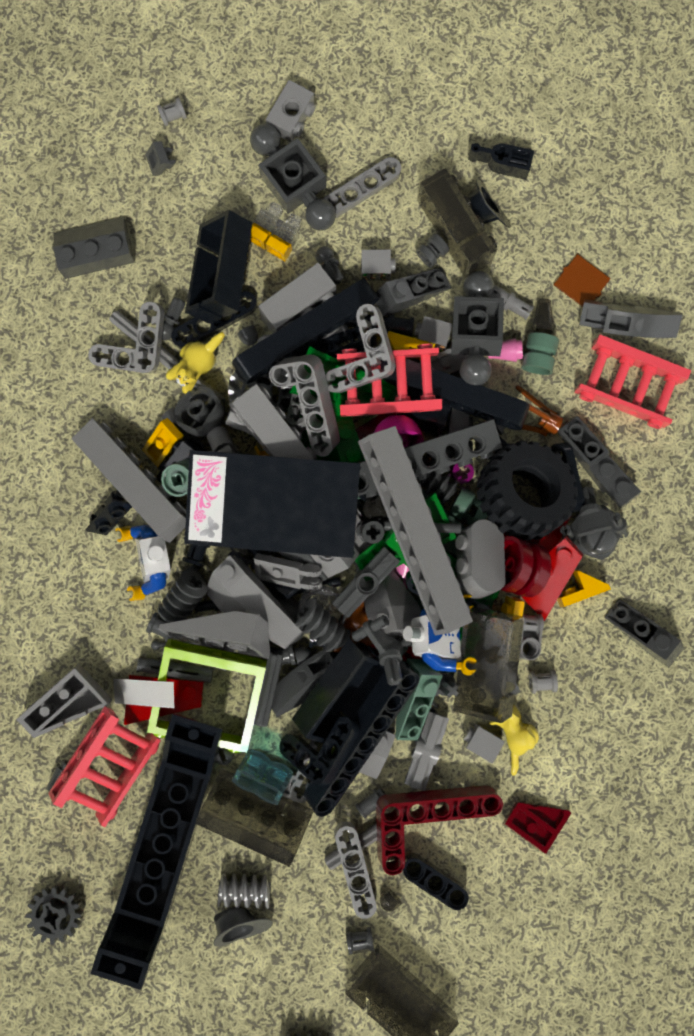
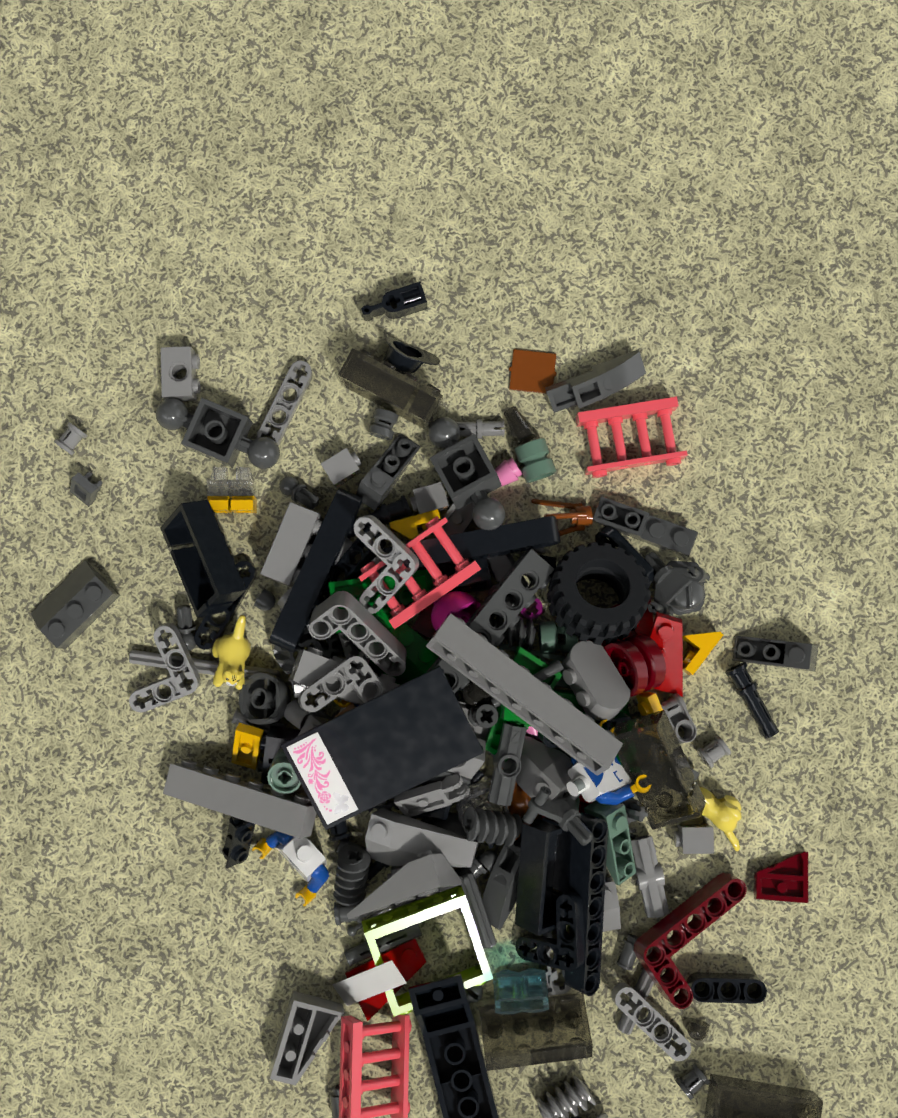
camera: 30 degrees left, 0 degrees up
(276, 430) = (346, 680): none -> light grey beam
(602, 647) = (748, 690): none -> black pin

